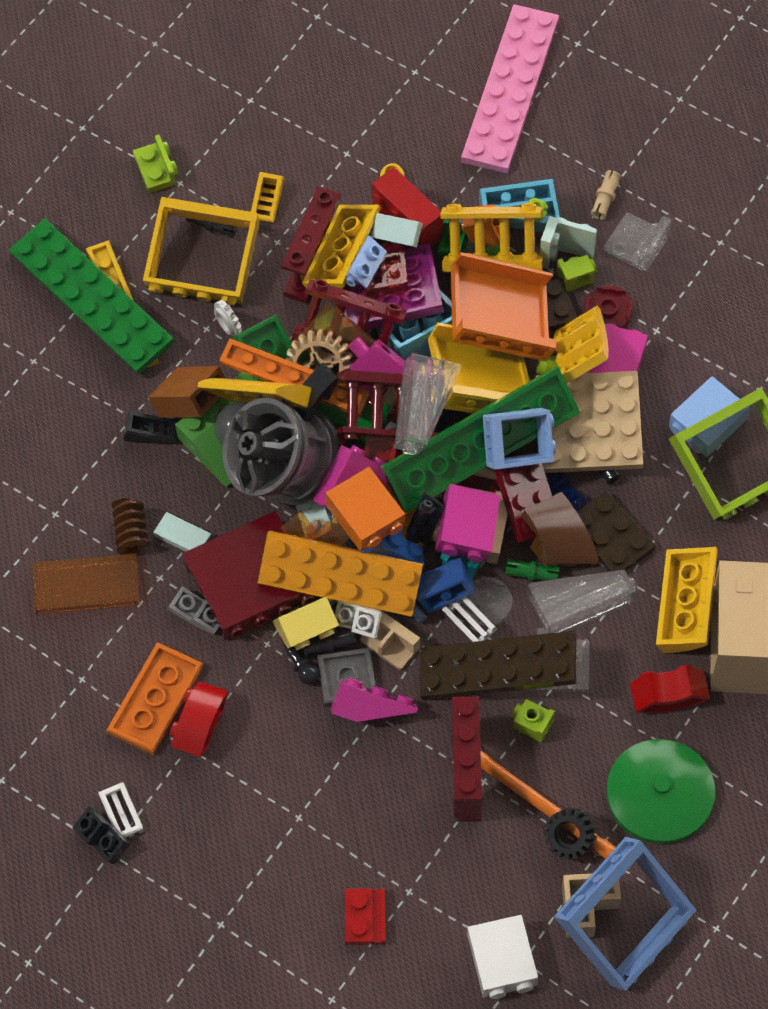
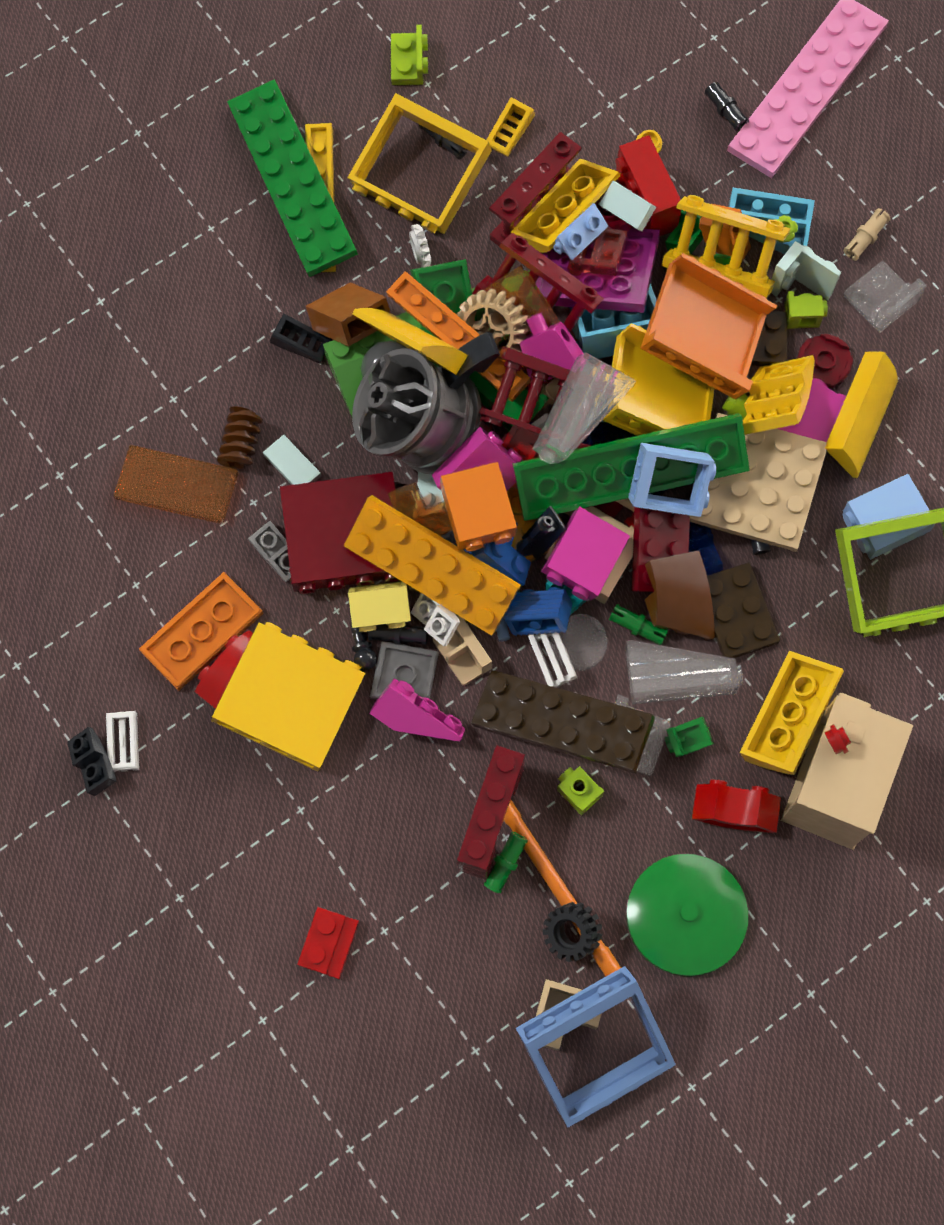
camera: 20 degrees right, 10 degrees up
(256, 723) = (288, 695): none -> yellow panel
(447, 125) = (726, 106): none -> black pin
(492, 798) = (505, 862): none -> green pin
(502, 957) = (452, 1041): white brick -> none
(609, 647) = (688, 737): none -> green bracket
(656, 338) = (862, 412): none -> yellow slope
(733, 592) = (838, 739): none -> red plate

